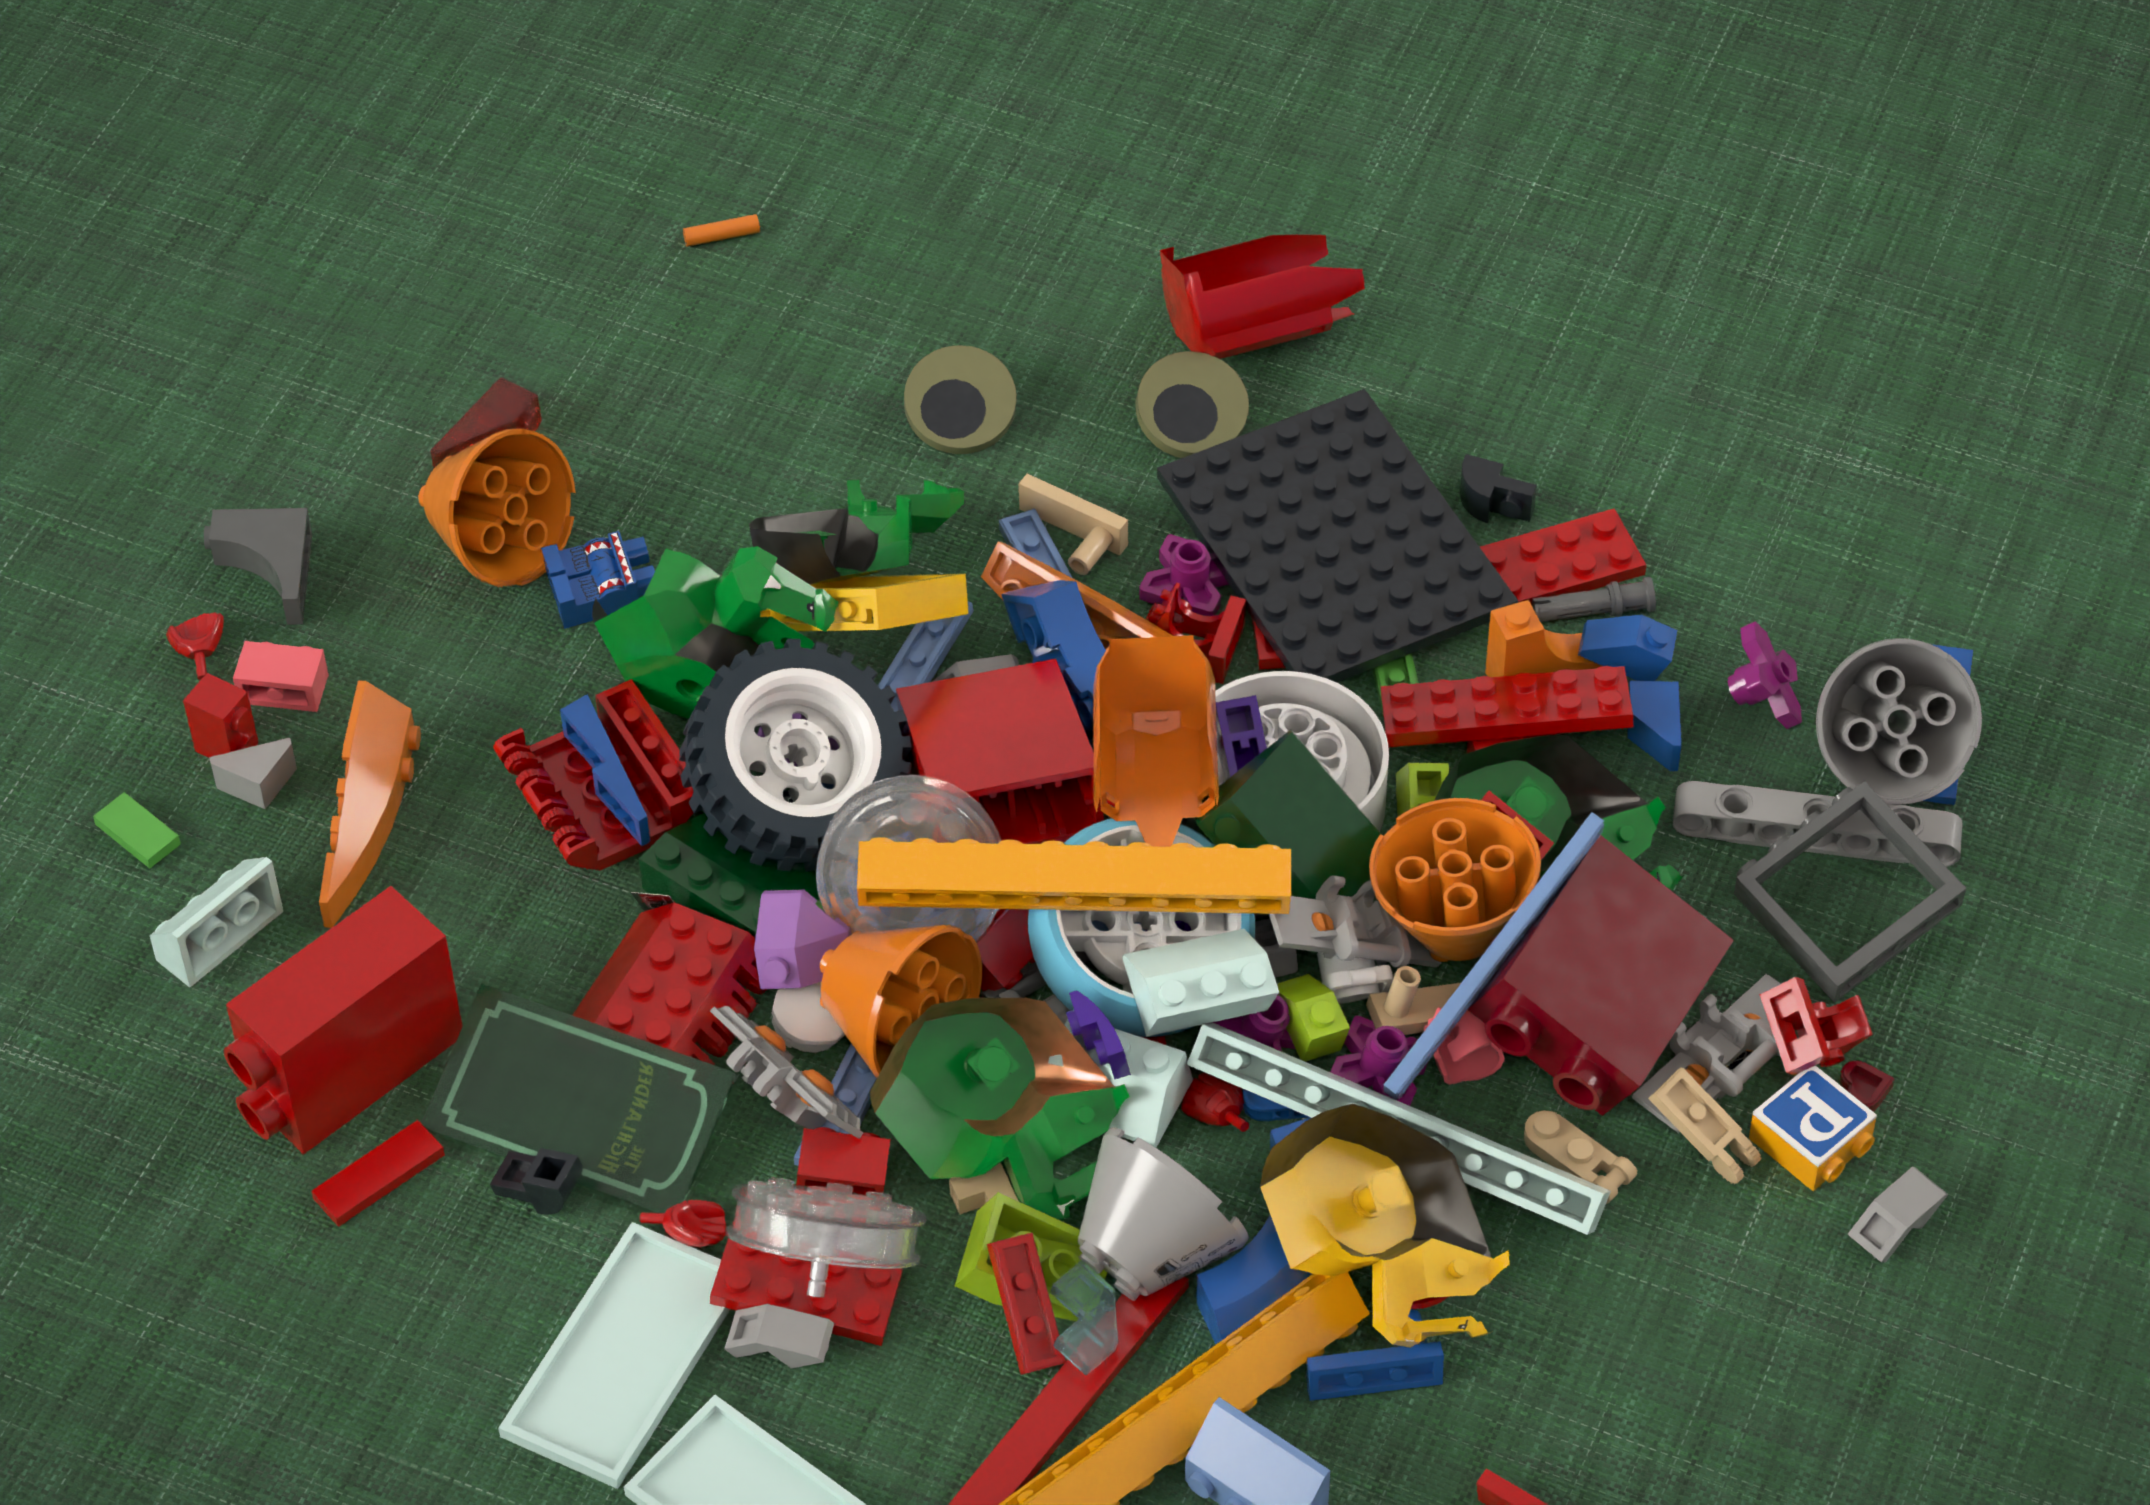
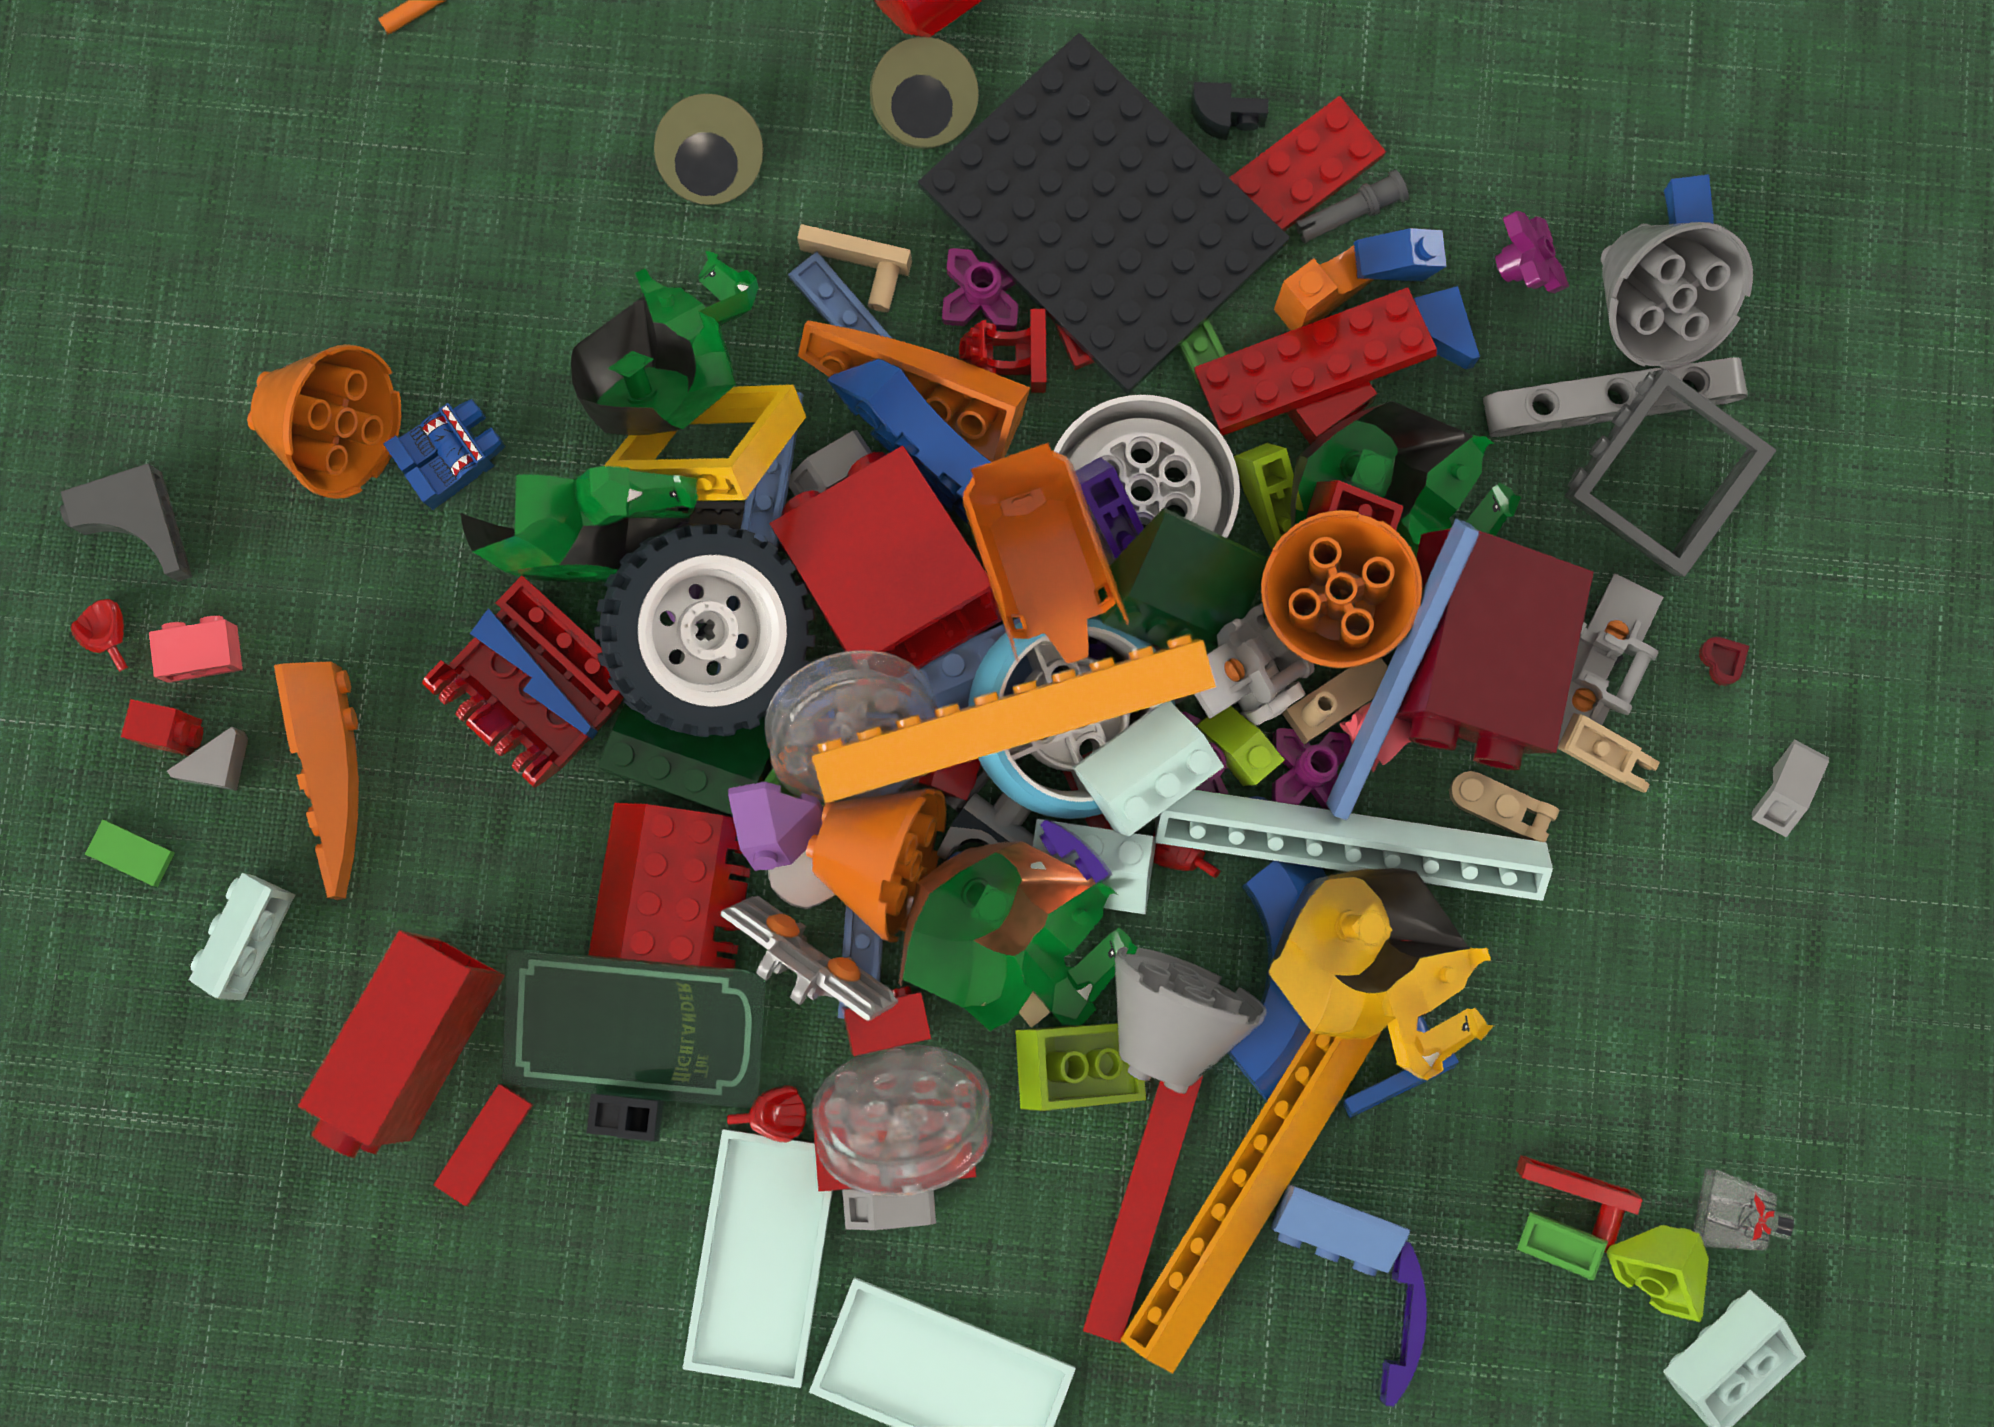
camera: 15 degrees left, 30 degrees up
(499, 409) = (283, 308): clear red slope -> none
(651, 901) = (627, 801): black sticker -> none
(1026, 1302) = (1091, 1119): red tile -> none
(1093, 1302) = (1157, 1124): clear light blue tile -> none
(1813, 1127) = (1698, 722): piece -> none
(1822, 1031) = (1683, 628): red tile -> none

